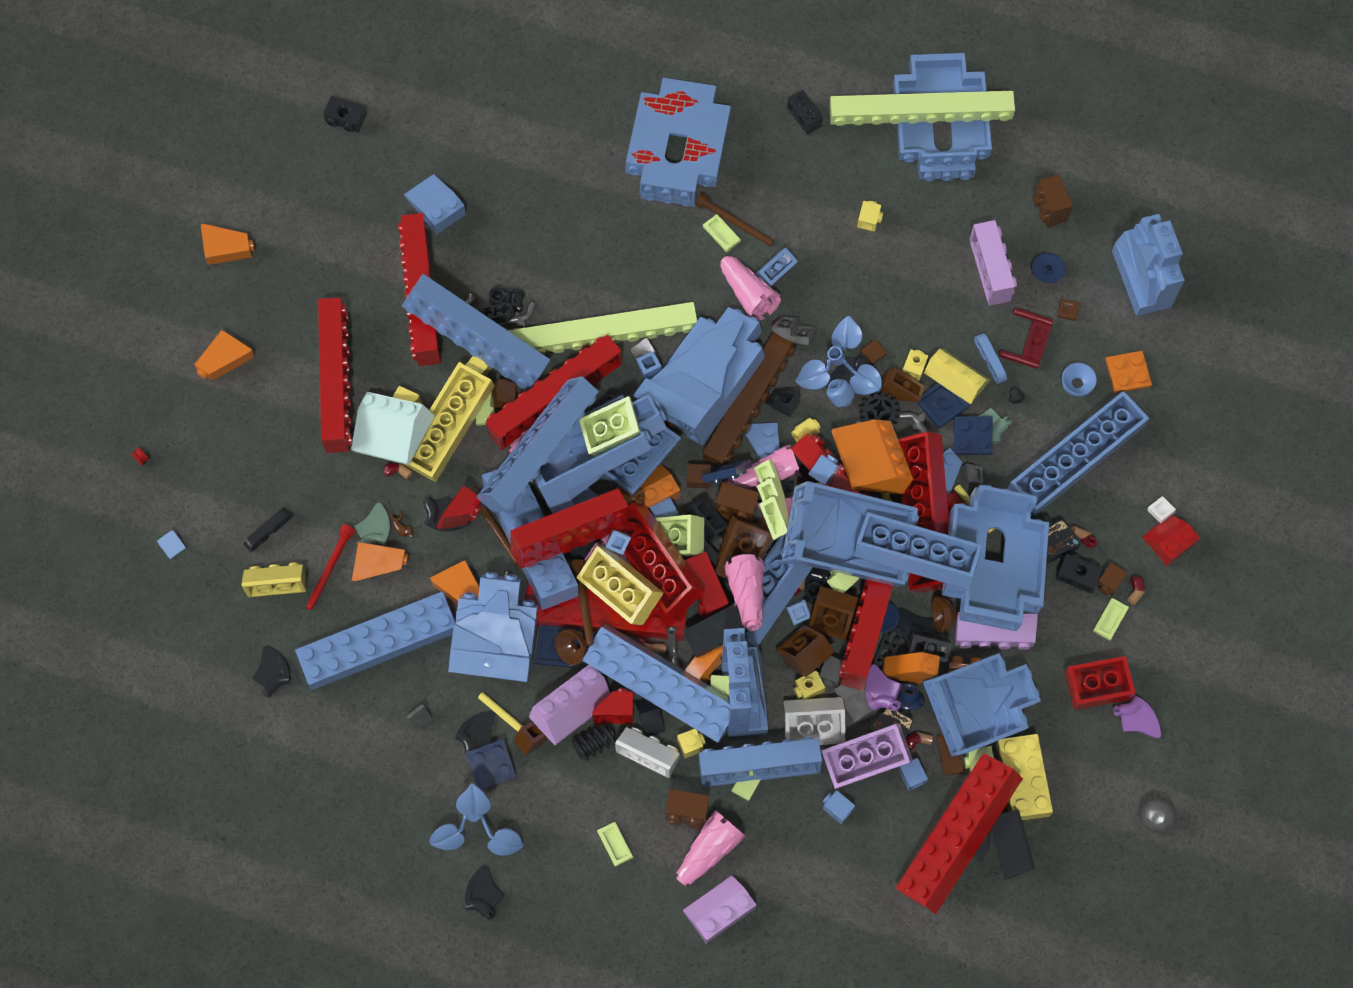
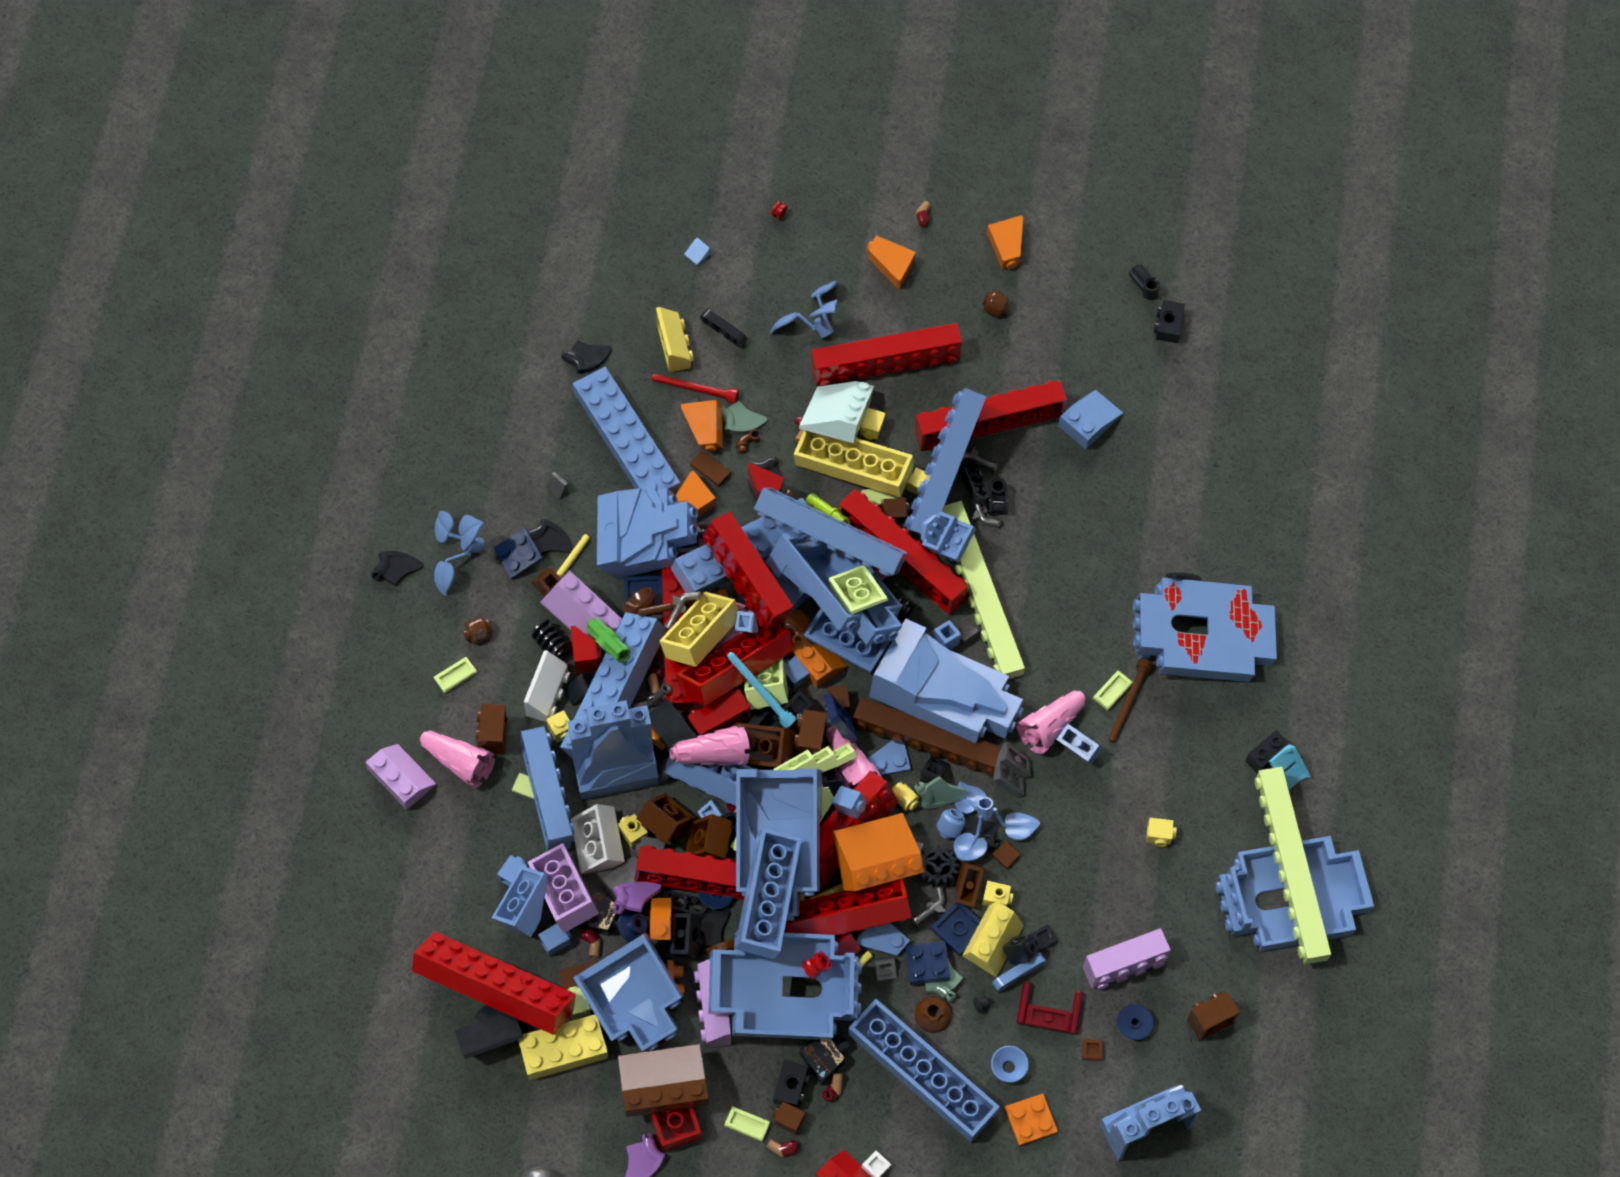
camera: 80 degrees right, 5 degrees down
(174, 319) = (922, 214): none -> dark red arm
(284, 431) = (821, 323): none -> medium blue plant
(293, 266) = (995, 303): none -> reddish brown head
(295, 129) = (1145, 281): none -> black piece
(425, 564) = (710, 468): none -> reddish brown tile
(501, 452) = (819, 504): none -> lime pin
(554, 342) = (946, 535): none -> medium blue piece
(570, 815) = (477, 630): none -> reddish brown head
(589, 603) = (680, 607): none -> flat silver piece
(615, 677) = (608, 640): none -> bright green piece
(621, 150) = (1186, 576): none -> black arm
(720, 522) = (785, 717): none -> medium azure piece
(809, 399) = (939, 793): none -> sand green arm
(820, 94) = (1295, 772): none -> medium azure piece
(877, 796) = (523, 902): none -> medium blue slope
(959, 337) = (1044, 938): none -> black tile
(972, 350) = (1021, 949): none -> black brick
(982, 524) = (816, 965): none -> red wheel
(1019, 448) = (930, 1023): none -> reddish brown piece
(1075, 682) = (663, 1080): none -> slope

